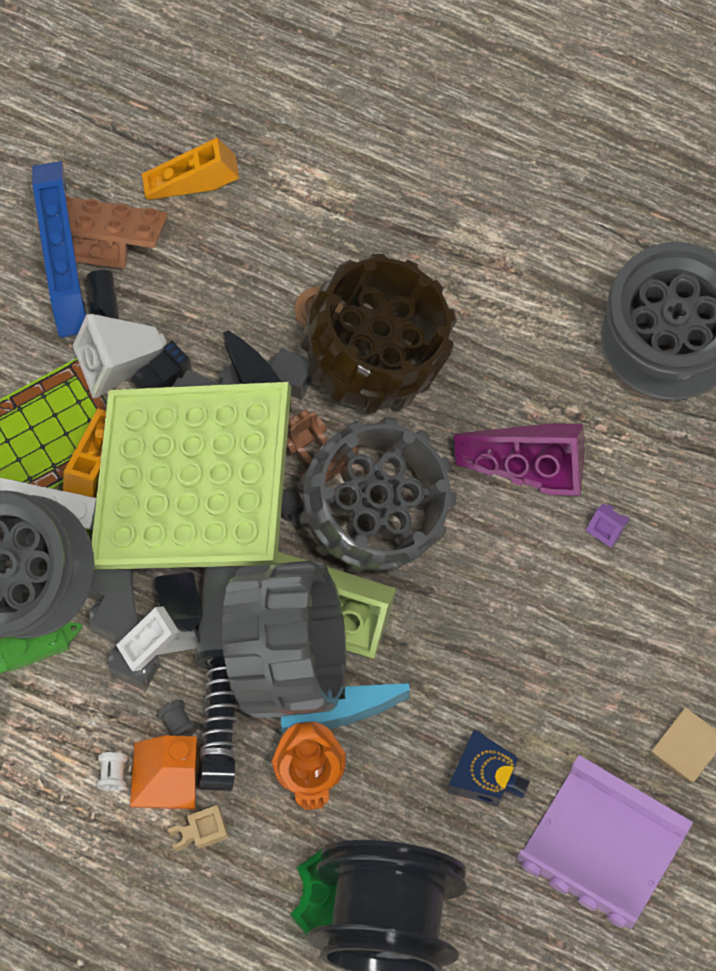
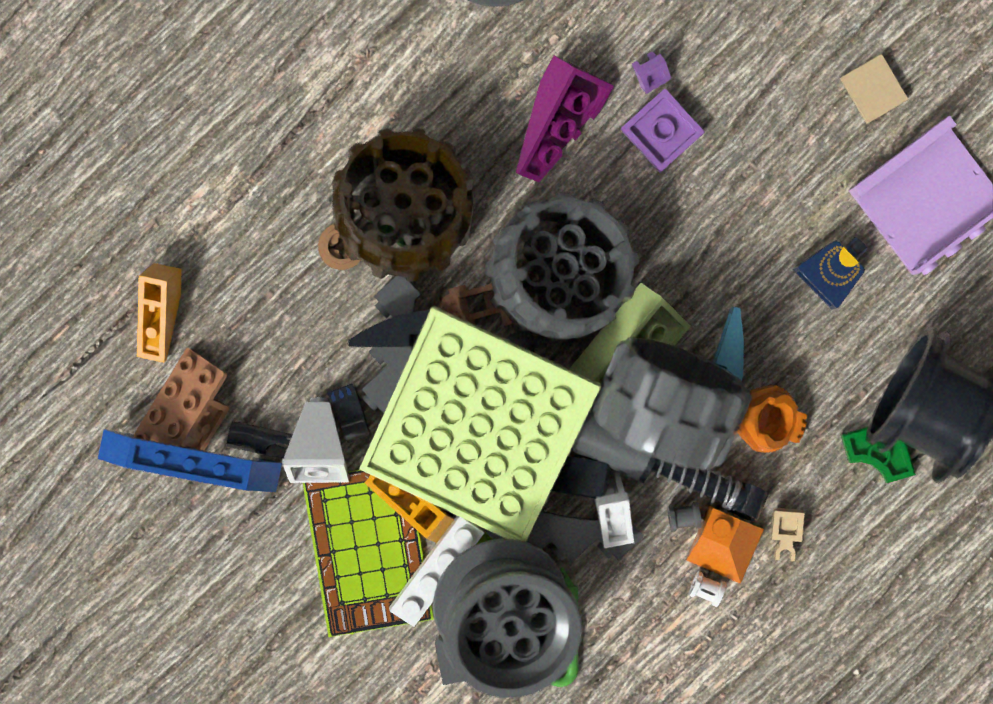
camera: 65 degrees left, 20 degrees up
(555, 556) = (662, 130): none -> medium lavender plate

